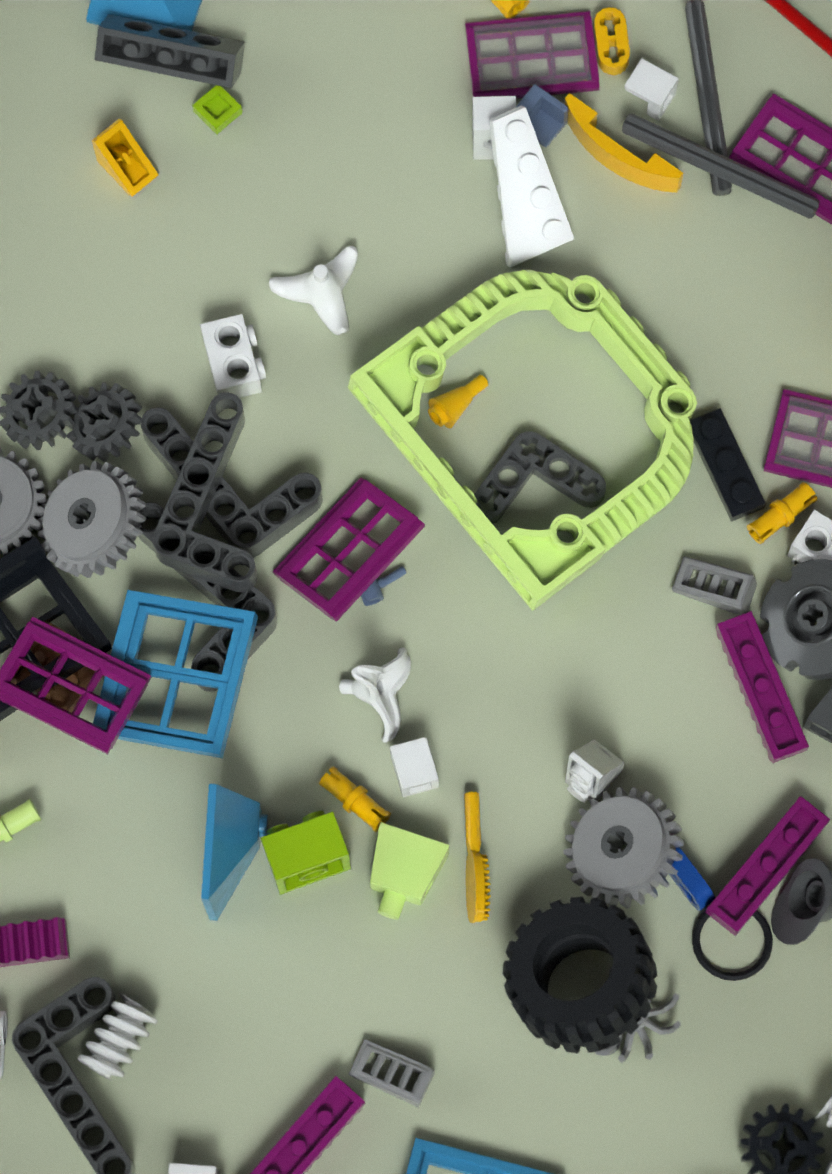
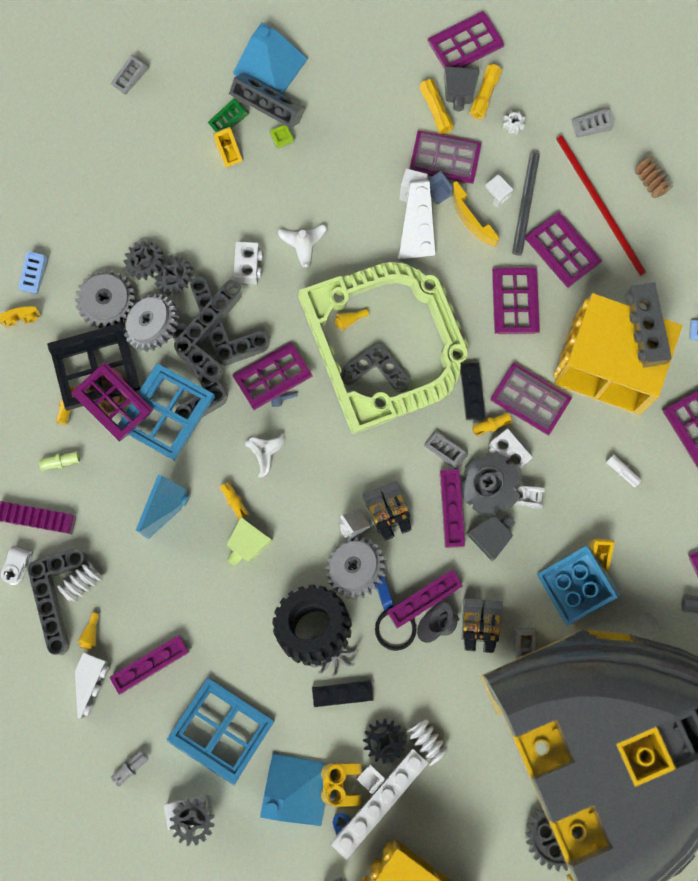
camera: 15 degrees right, 5 degrees up
(101, 87) = (223, 113): none -> green slope
(166, 1137) = (88, 637): none -> yellow cone
(305, 851) = (199, 520): lime slope -> none
(414, 767) = (267, 494): white panel -> none
(425, 1073) = (222, 649): light grey slope -> none
(475, 863) = (281, 554): yellow piece -> none
(604, 42) = (490, 161): yellow beam -> none
(645, 726) = (390, 516): none -> hips
(674, 1088) = (342, 694): none -> black plate
(720, 166) = (519, 240): dark grey axle -> none
(778, 263) = (498, 301): none -> magenta piece

